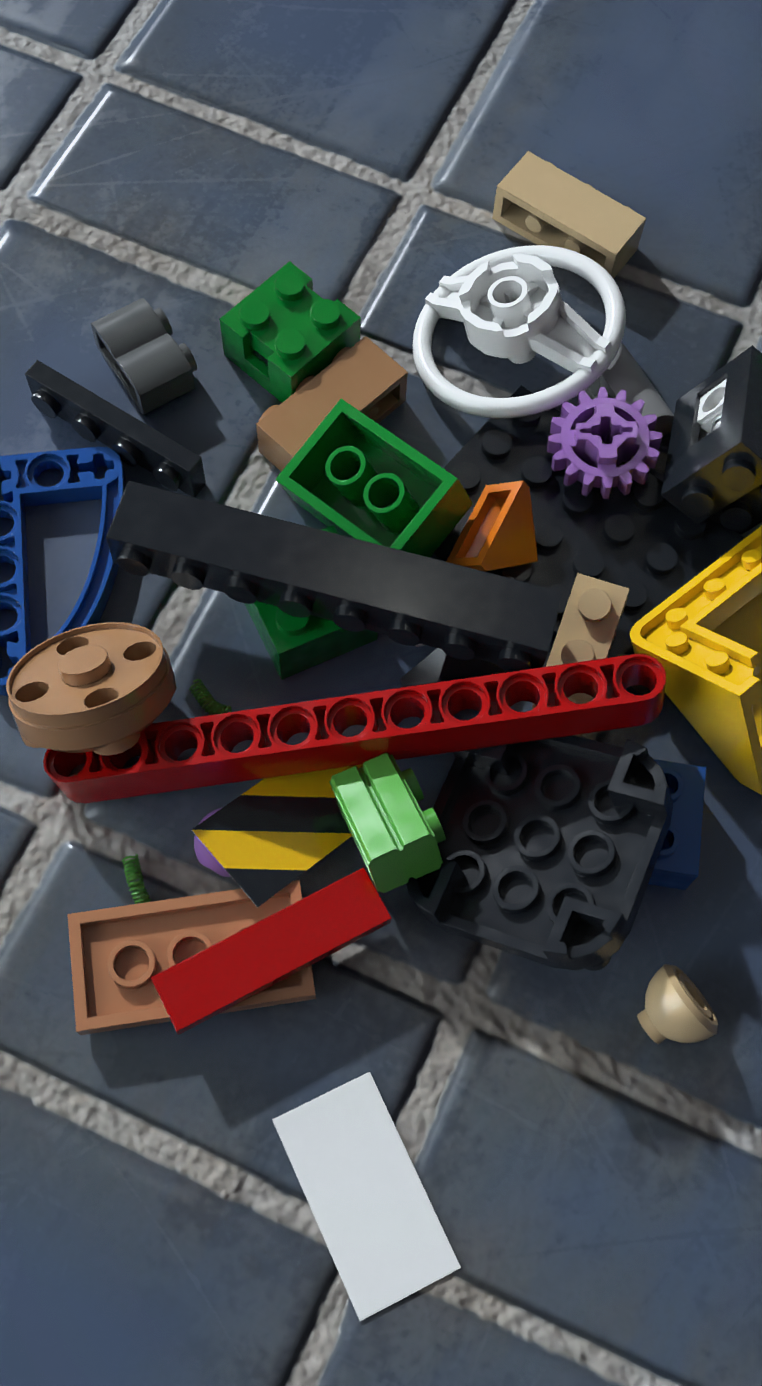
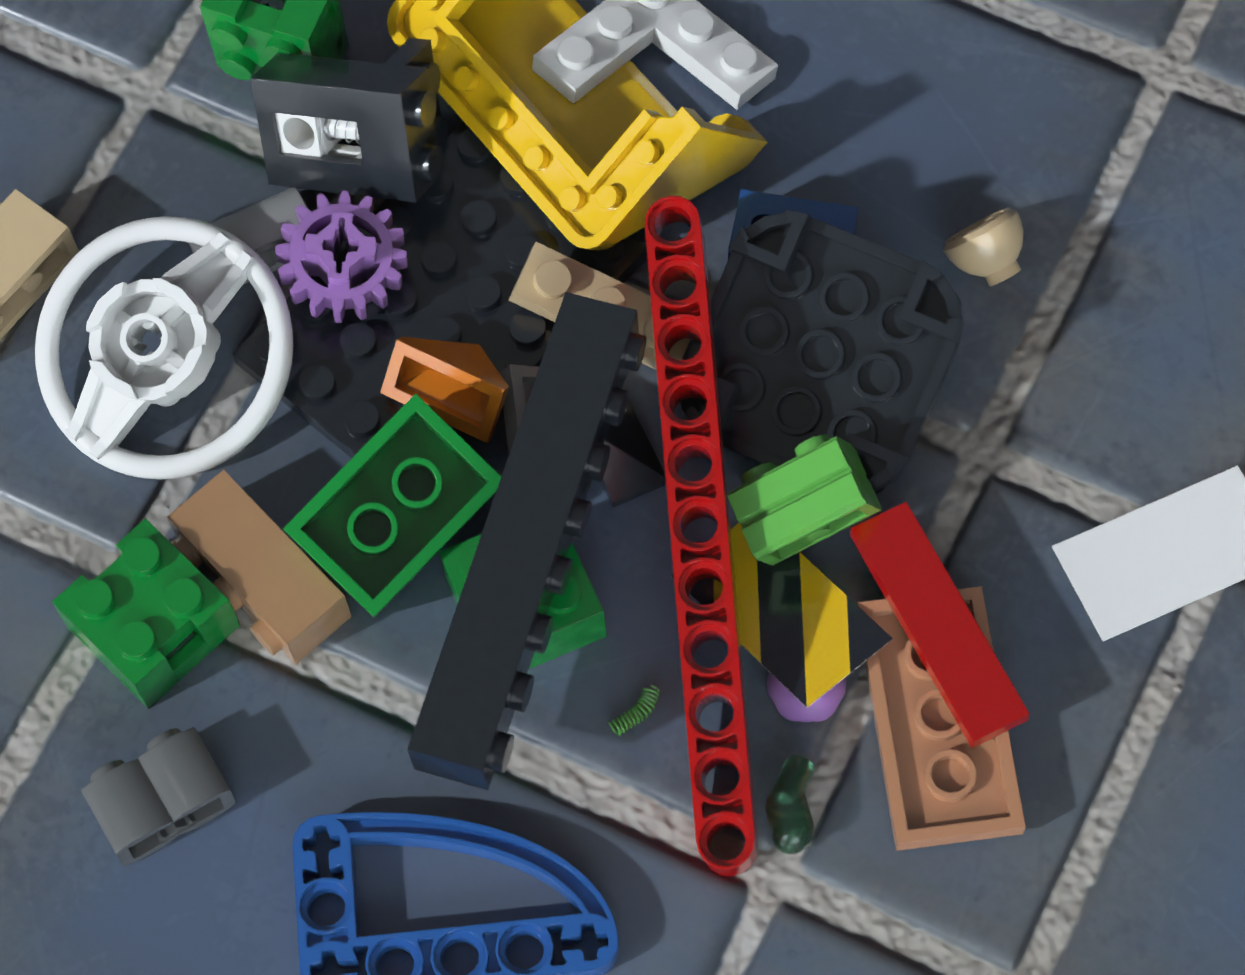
camera: 80 degrees left, 0 degrees up
(91, 688) = (642, 813): medium nougat piece -> none
(112, 822) = (788, 806): none -> clear green arm
(129, 437) = (254, 846): black plate -> none
(139, 889) = (853, 782): bright green leg -> none

